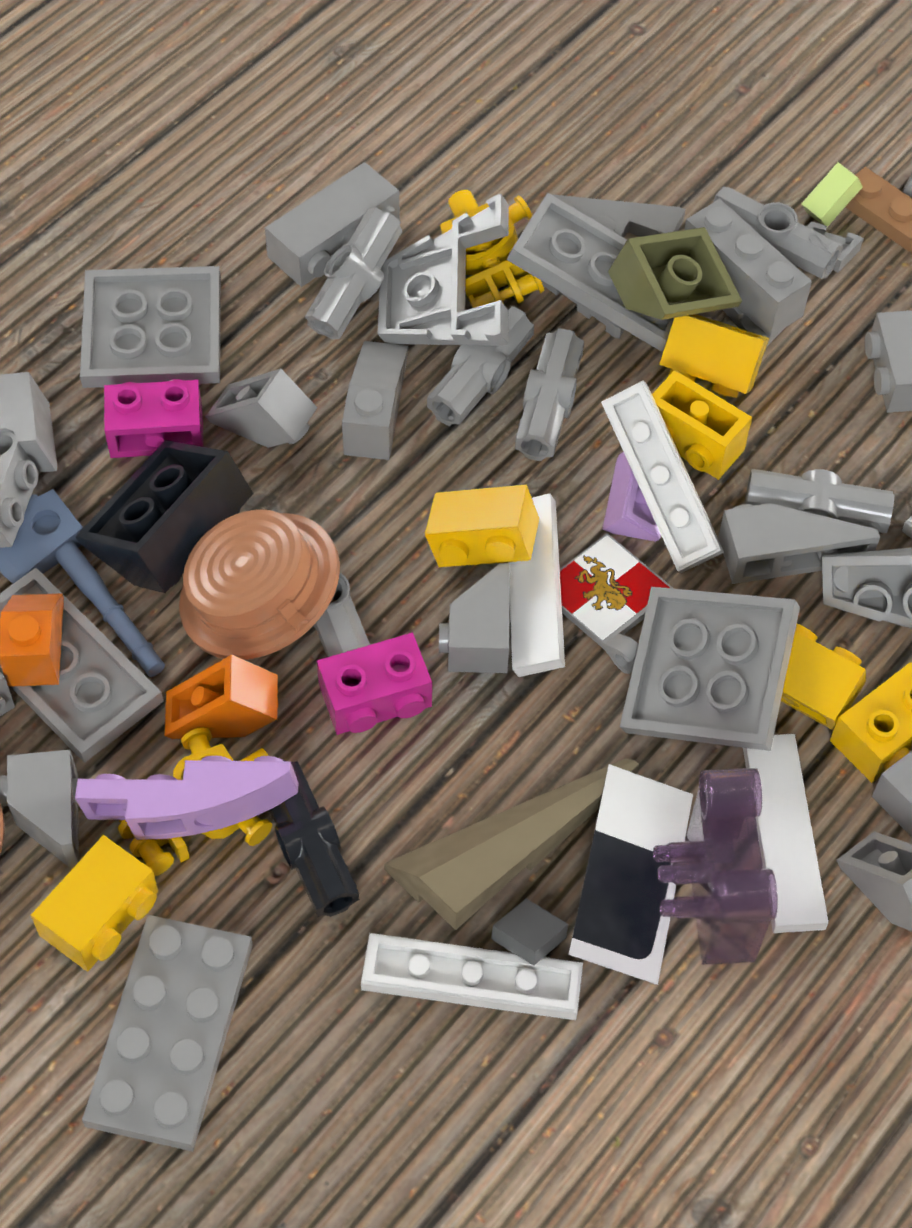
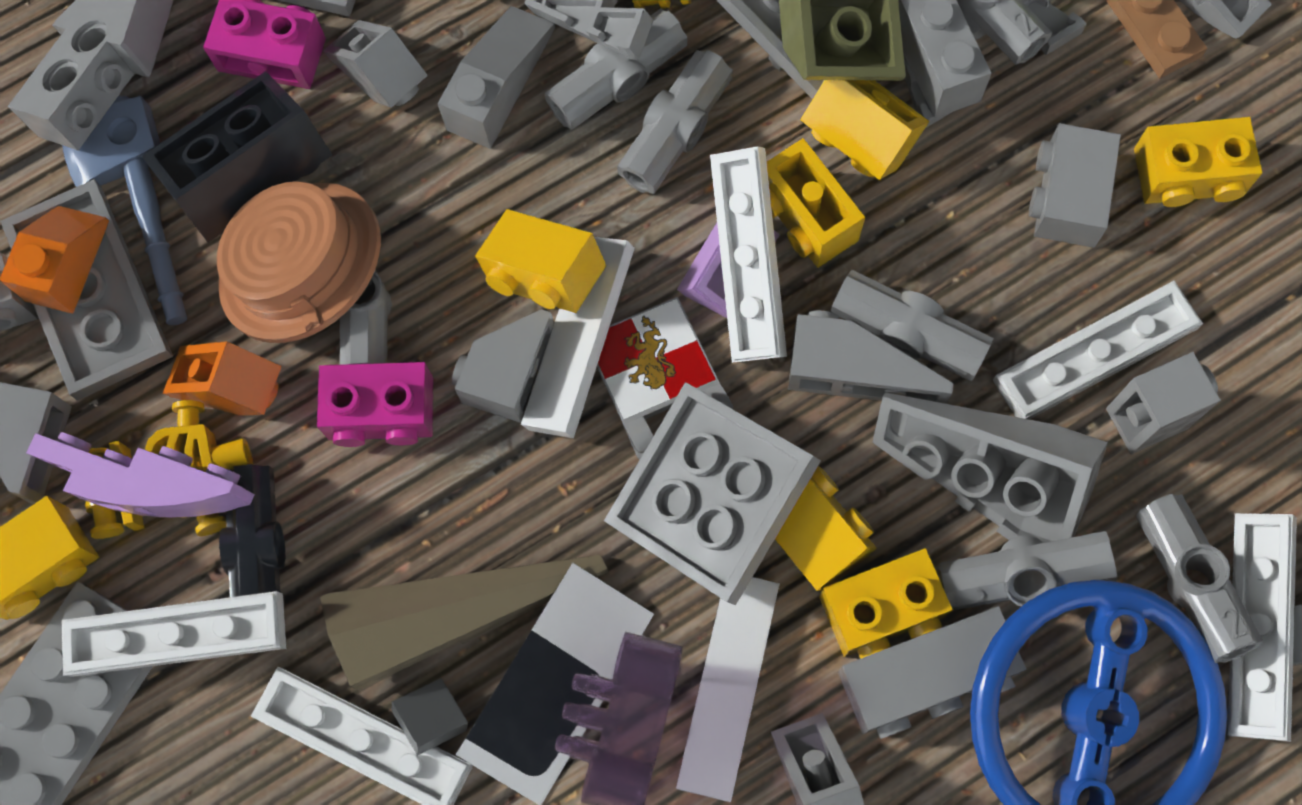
camera: 25 degrees right, 15 degrees up
(267, 923) = (173, 634): none -> white tile

